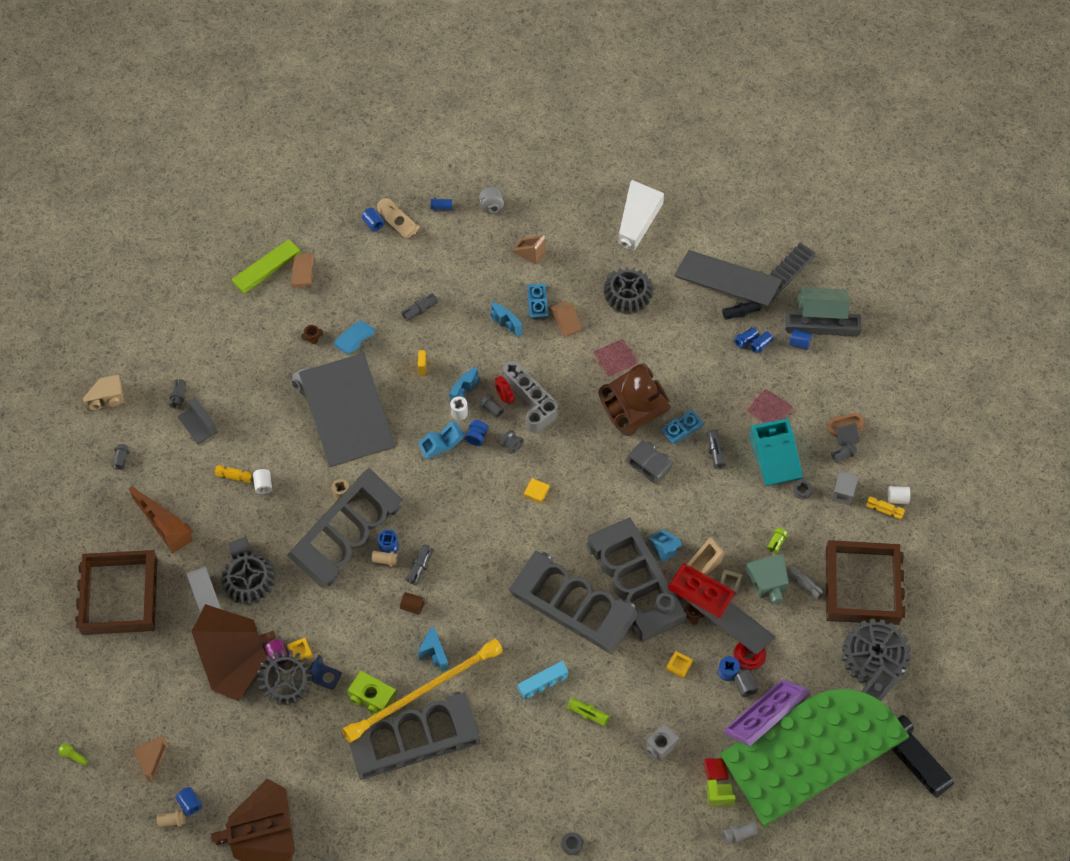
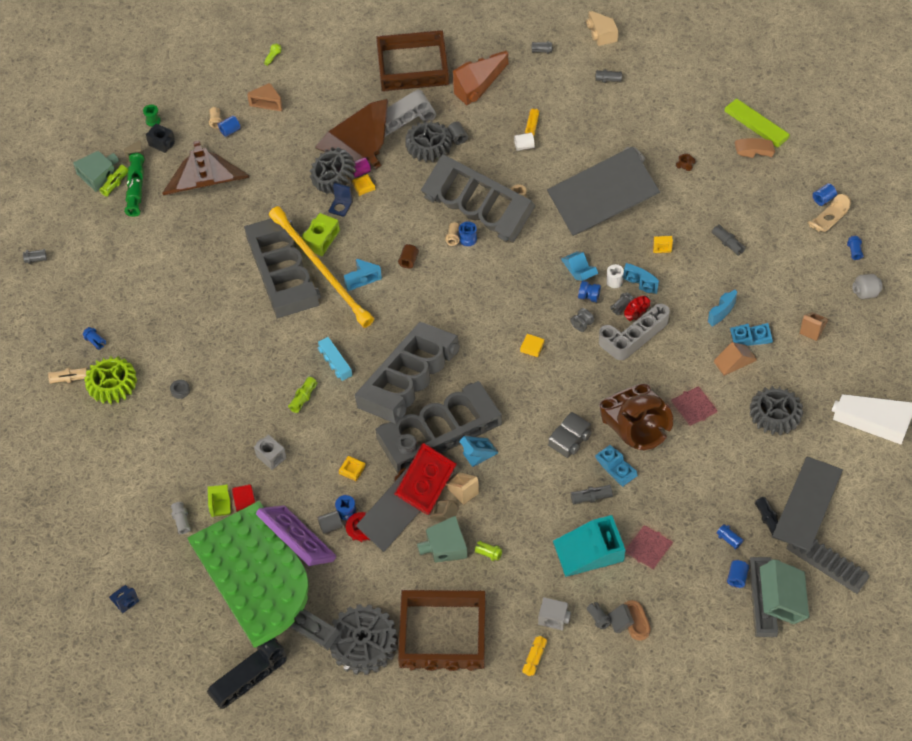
camera: 90 degrees right, 5 degrees down
(197, 422) = (582, 93): dark grey panel -> none
(352, 337) = (680, 188): dark azure slope -> none
(419, 564) = (448, 259): dark grey pin -> none
(742, 339) = (733, 521): blue pin -> none
(806, 582) = (443, 577): light grey axle -> none
(807, 492) = (545, 579): dark grey bush -> none
(898, 495) = (549, 668): white gear -> none

